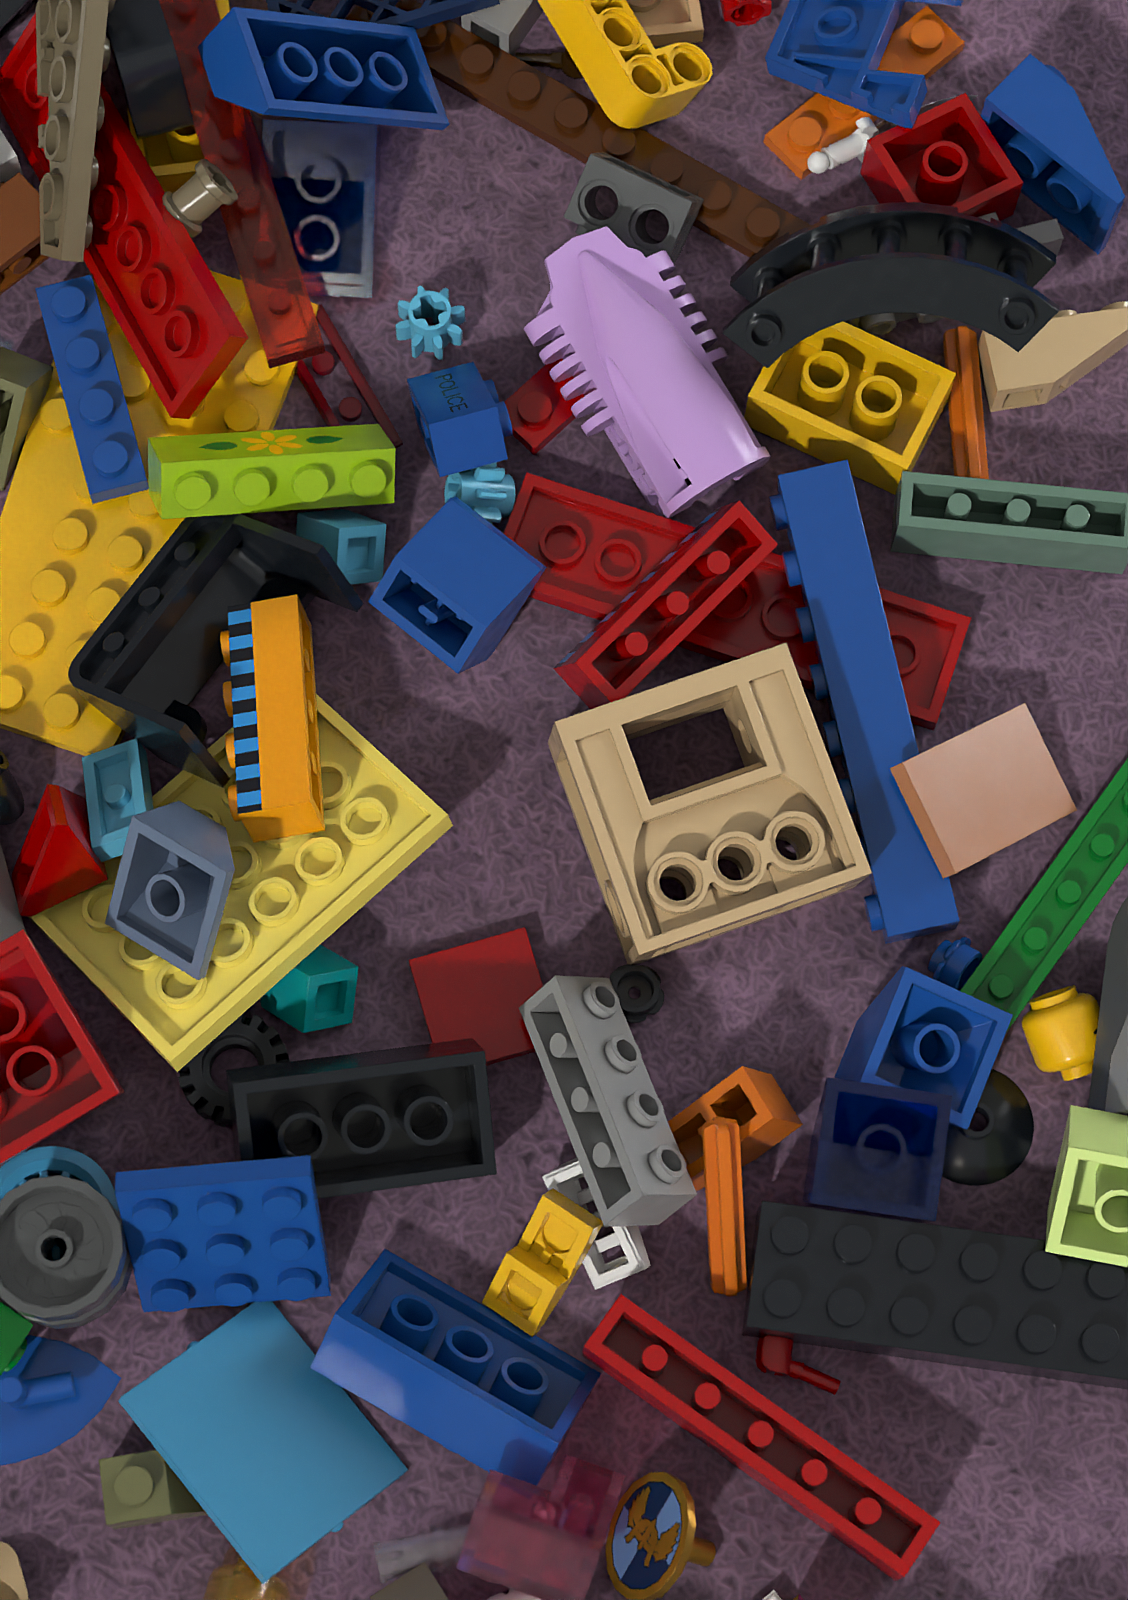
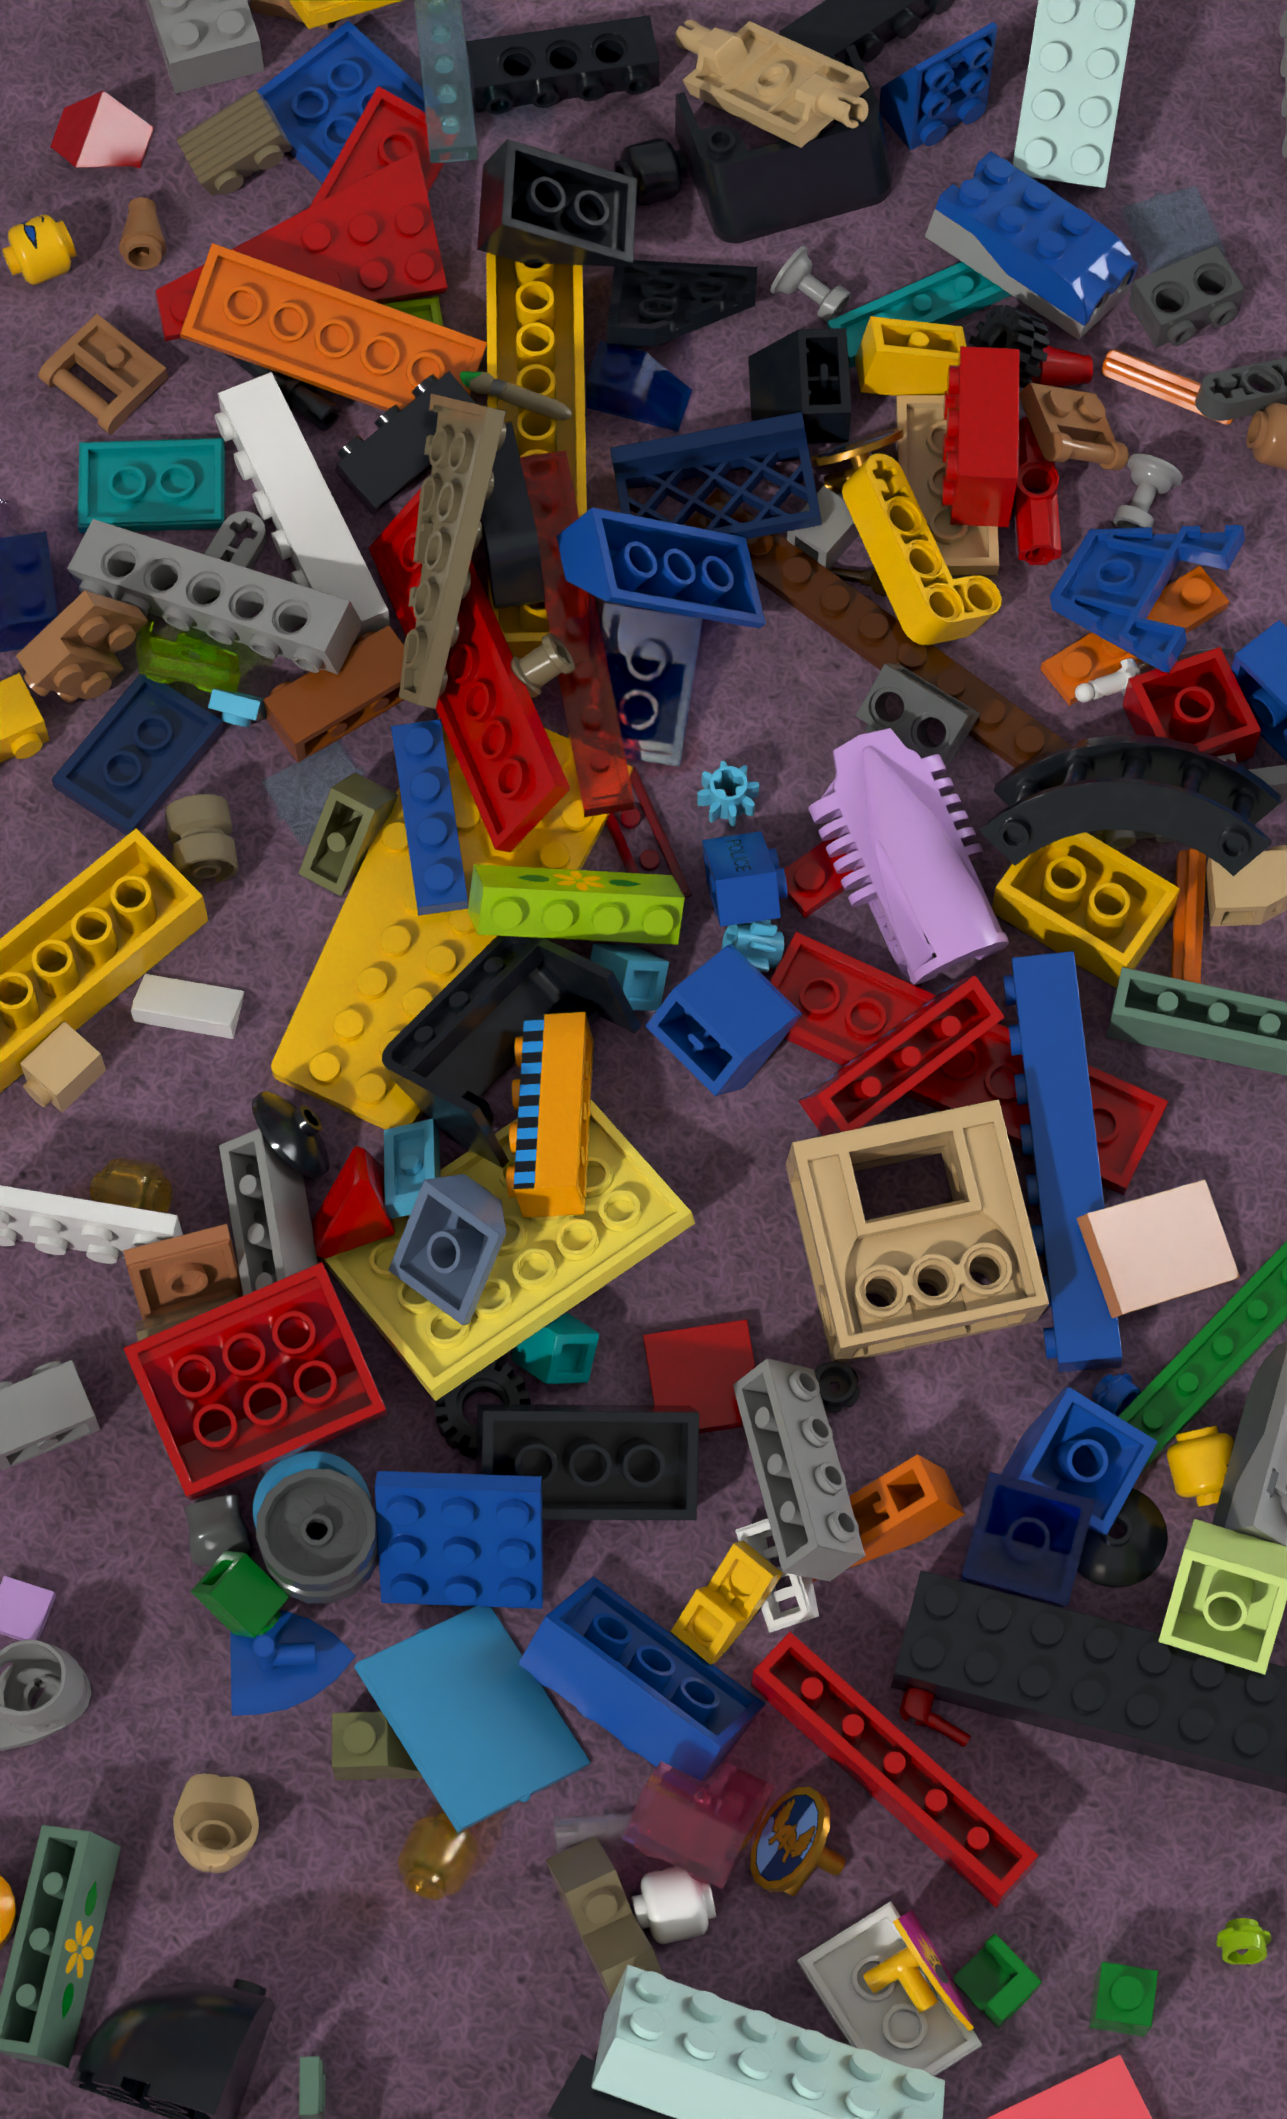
camera: 10 degrees right, 5 degrees down
(724, 1206) = (888, 1572): orange axle -> none

